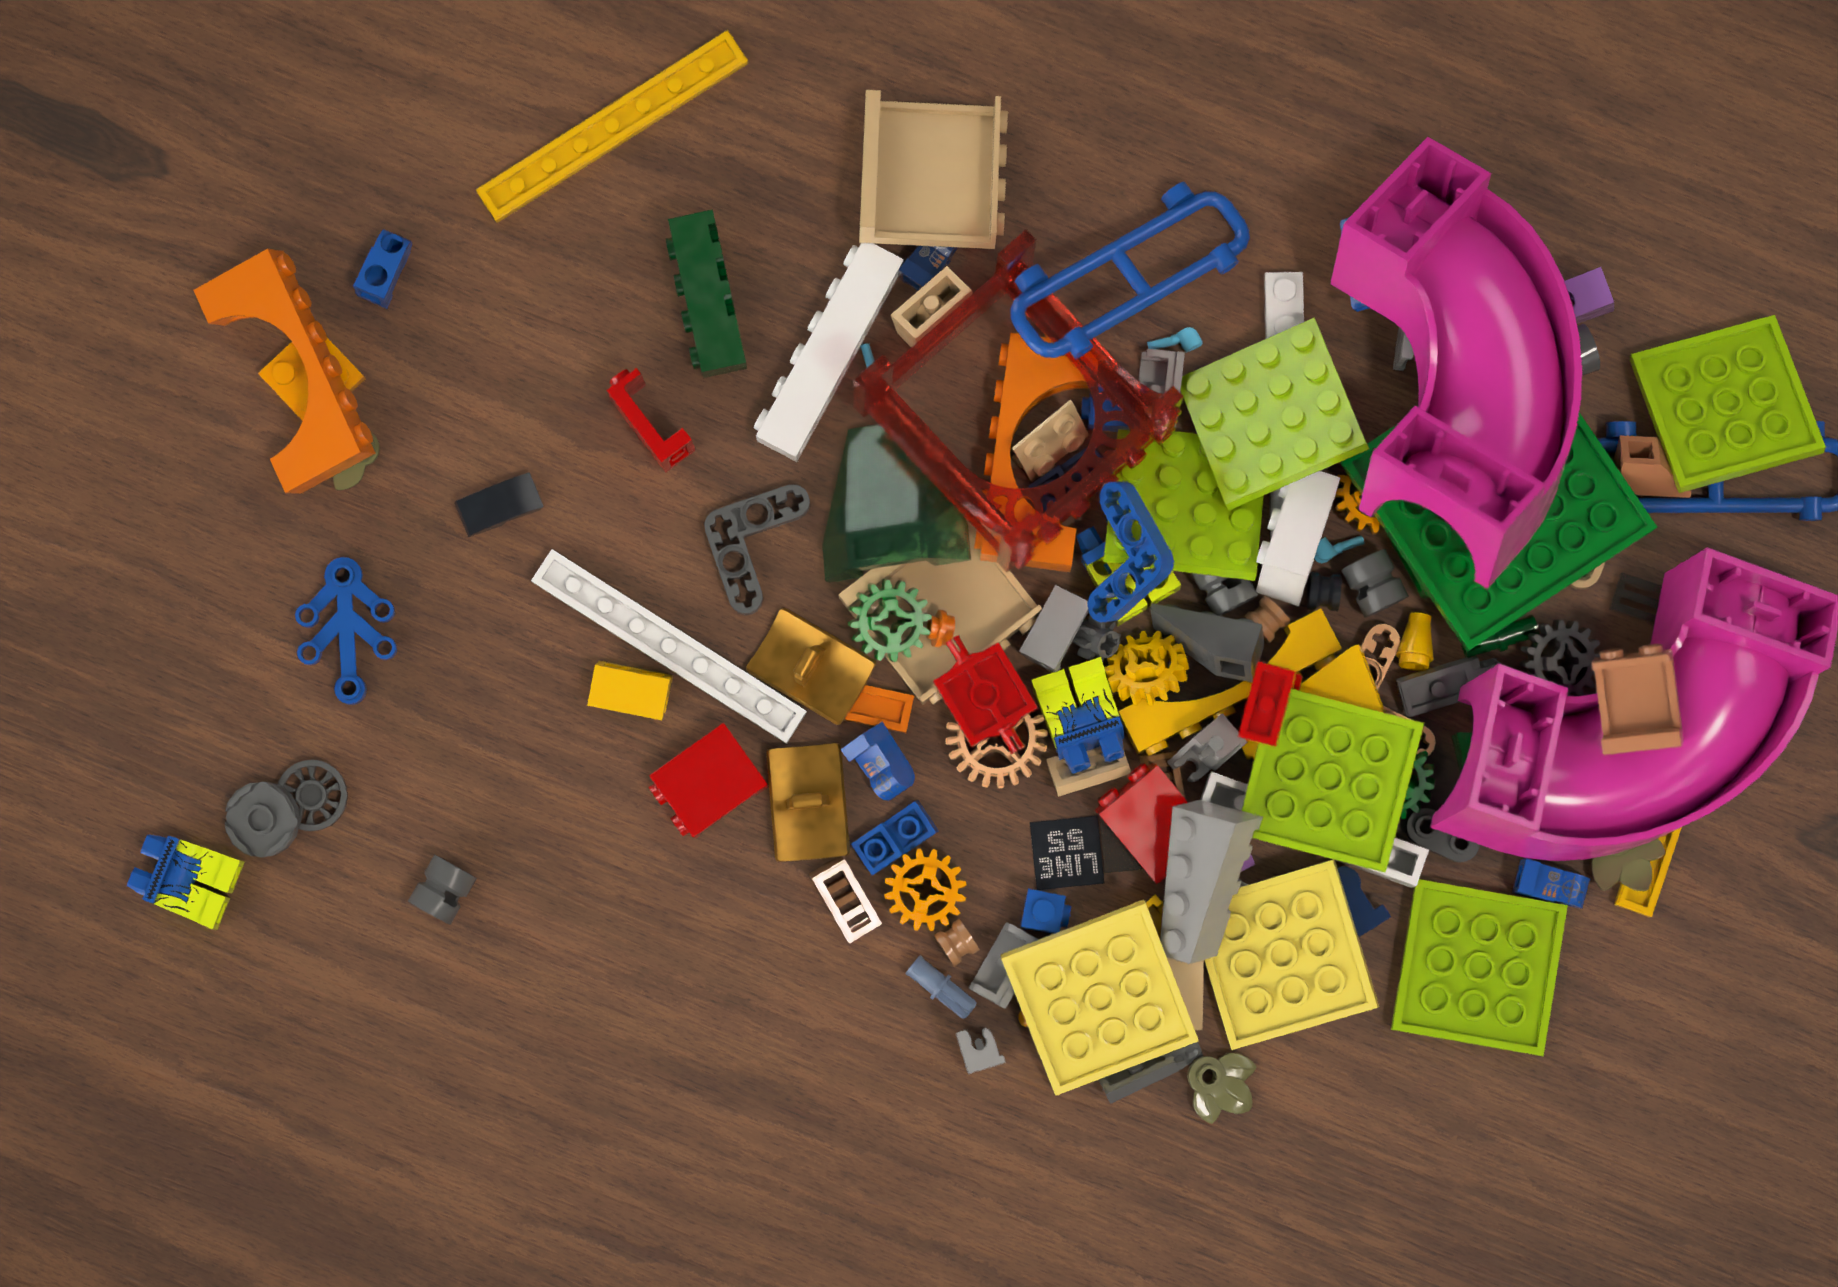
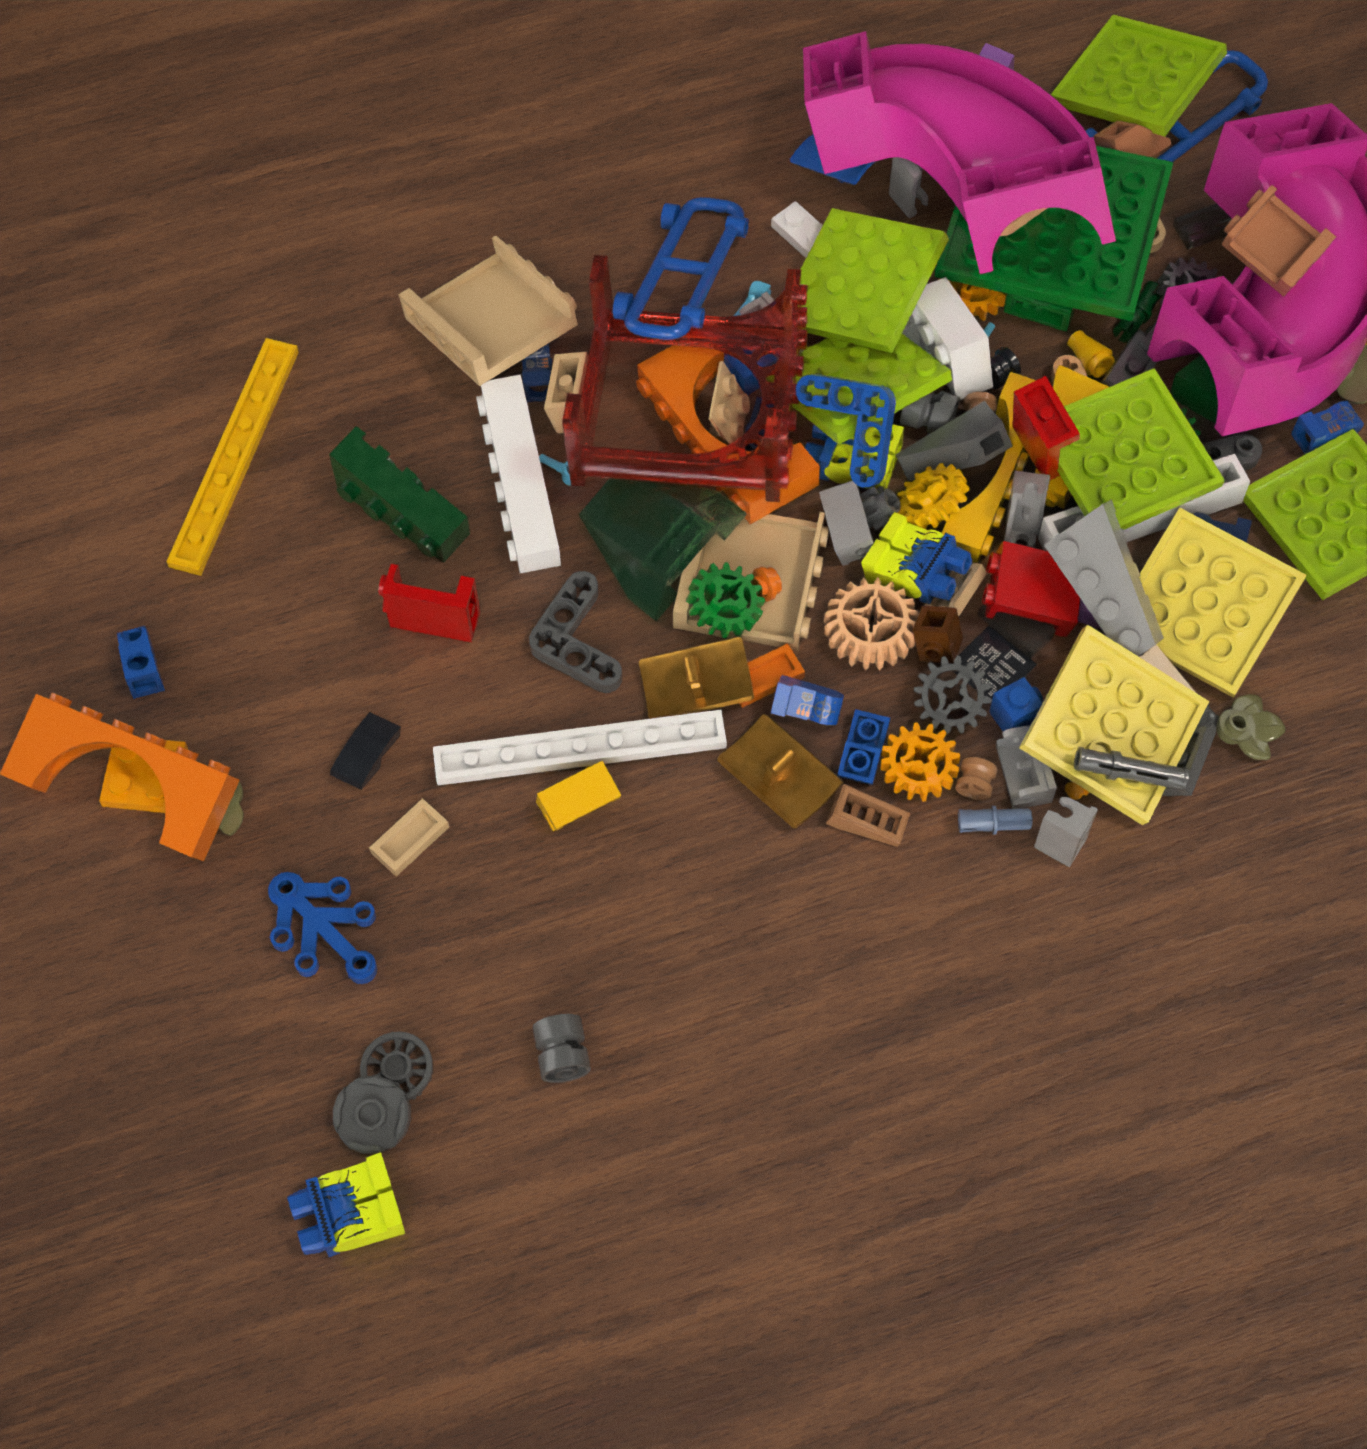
camera: 40 degrees left, 20 degrees down
(474, 609) = (409, 837): none -> tan tile
(706, 781) = (693, 813): red panel -> none
(985, 694) = (840, 590): red plate -> none
(1003, 871) = (937, 686): none -> dark grey gear
(1035, 796) = (937, 634): none -> reddish brown brick
(1060, 1035) = (1116, 766): none -> dark grey pin
(1375, 583) = (1016, 333): dark grey wheel -> none

